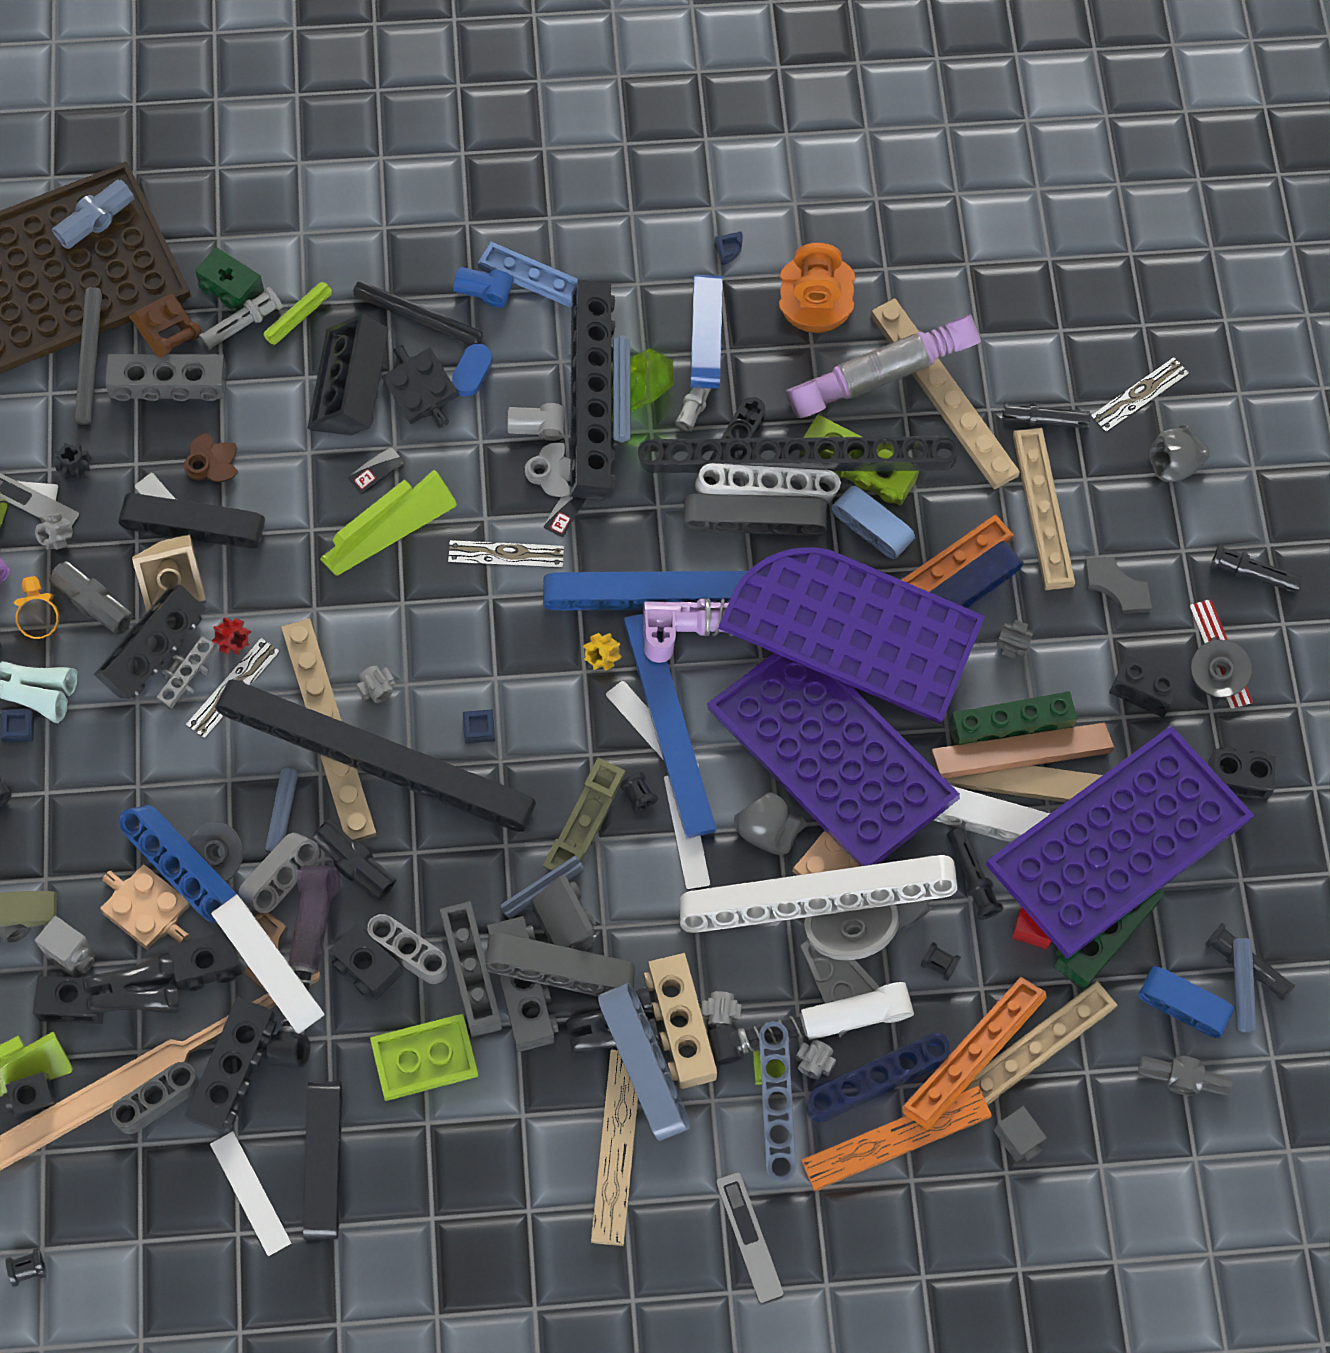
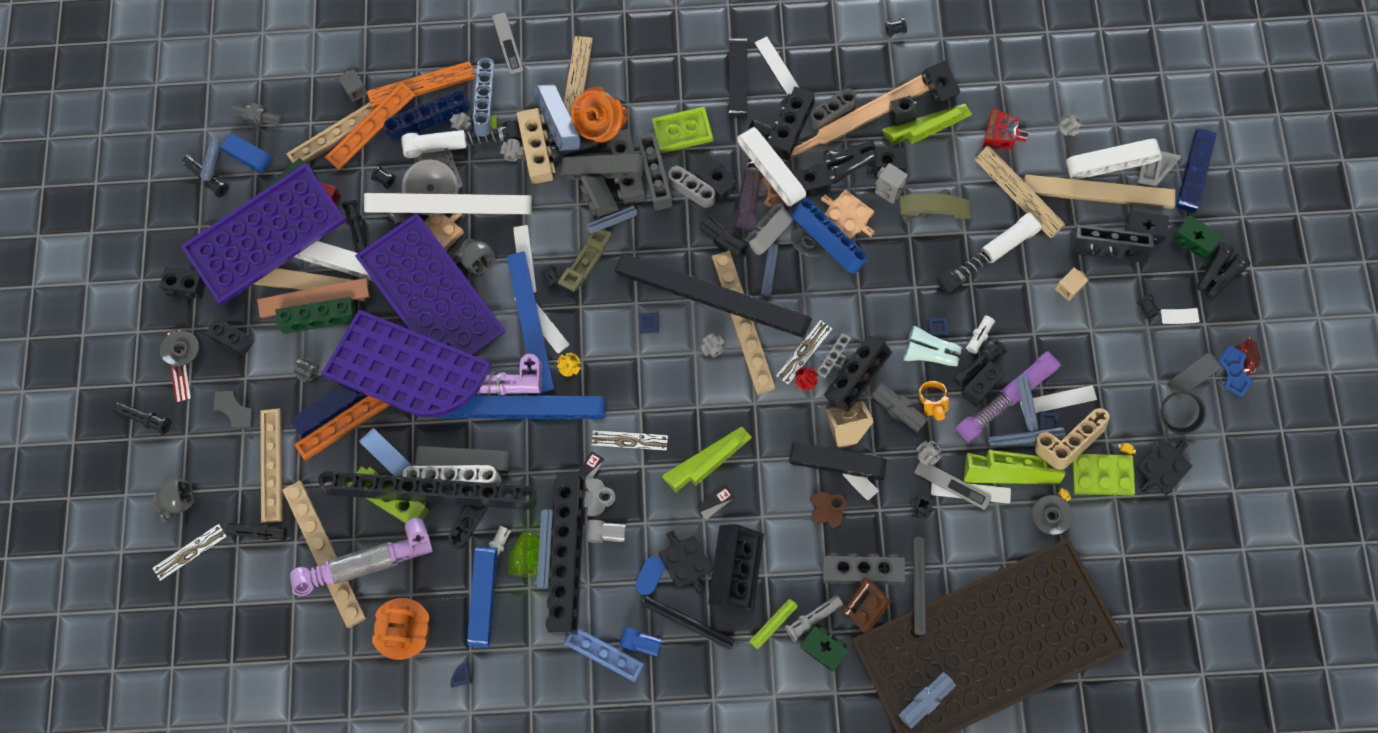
camera: 170 degrees left, 5 degrees up
(567, 1055) = (598, 115): none -> orange piece

